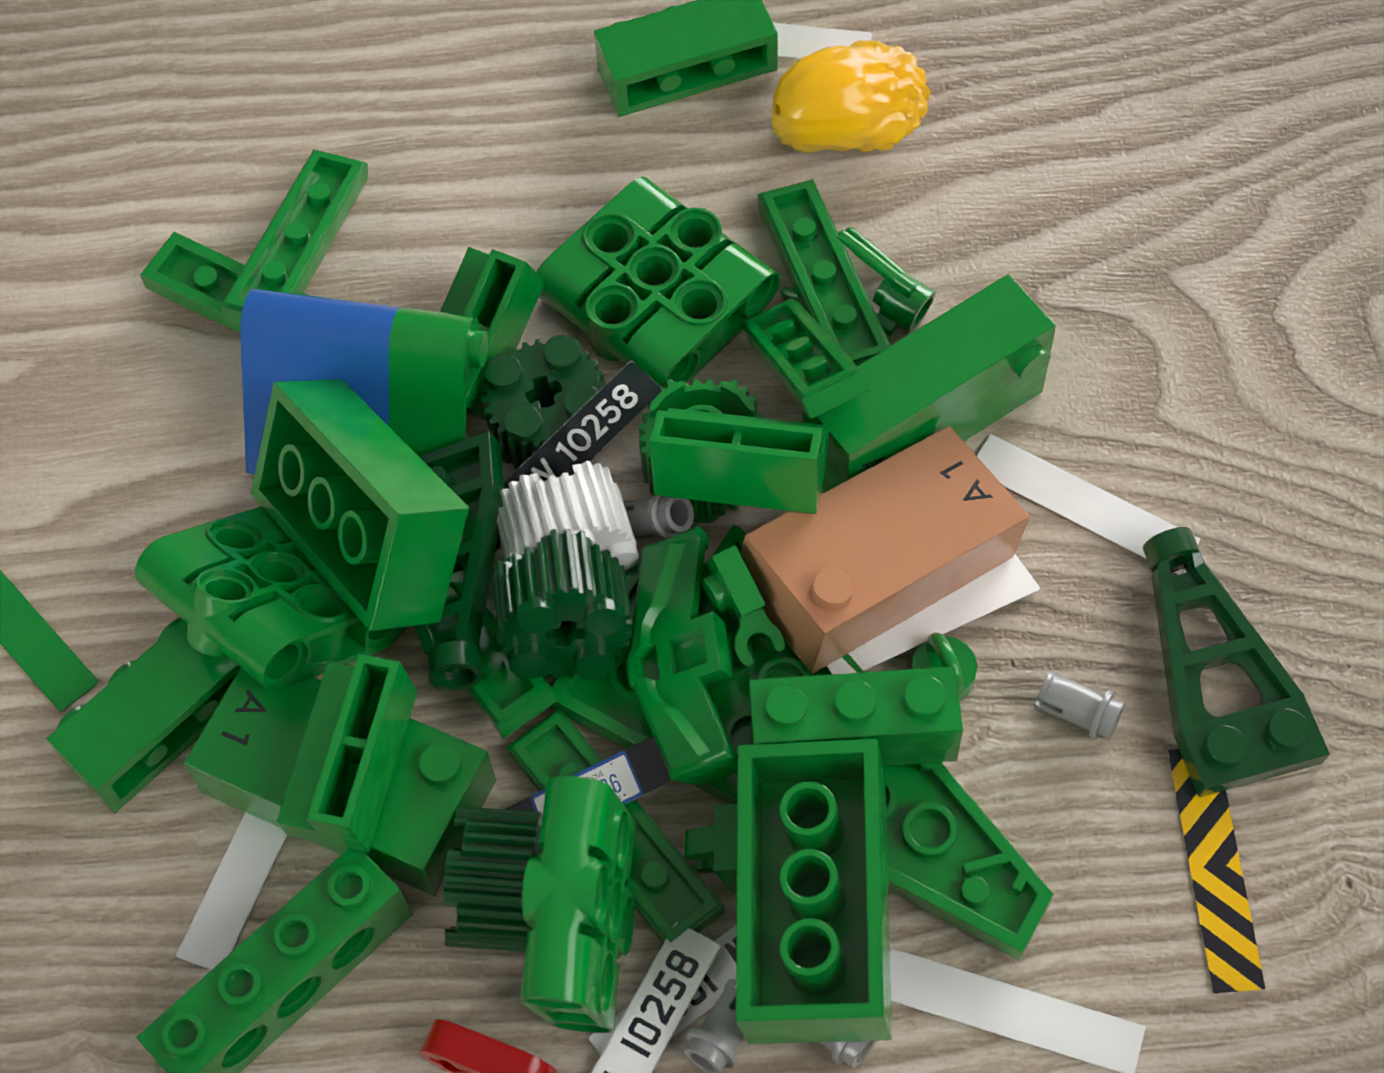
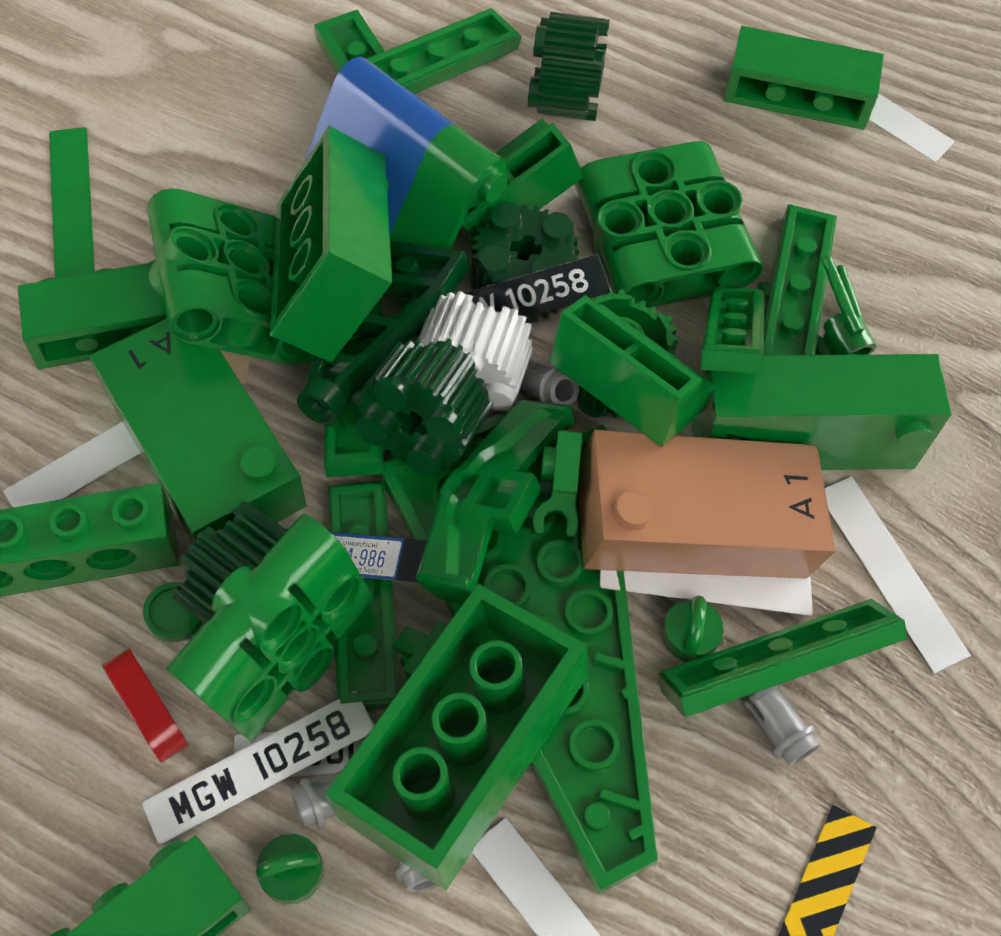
camera: 25 degrees right, 0 degrees up
(348, 753) = (195, 414): green piece -> none
(438, 968) = (166, 617): none -> green piece
(452, 172) = (569, 65): none -> dark green brick
(850, 99) = (904, 173): yellow piece -> none
(907, 710) = (623, 637): green brick -> none
(1043, 641) = (780, 656): none -> green tile
(1240, 745) = (896, 841): dark green plate -> none

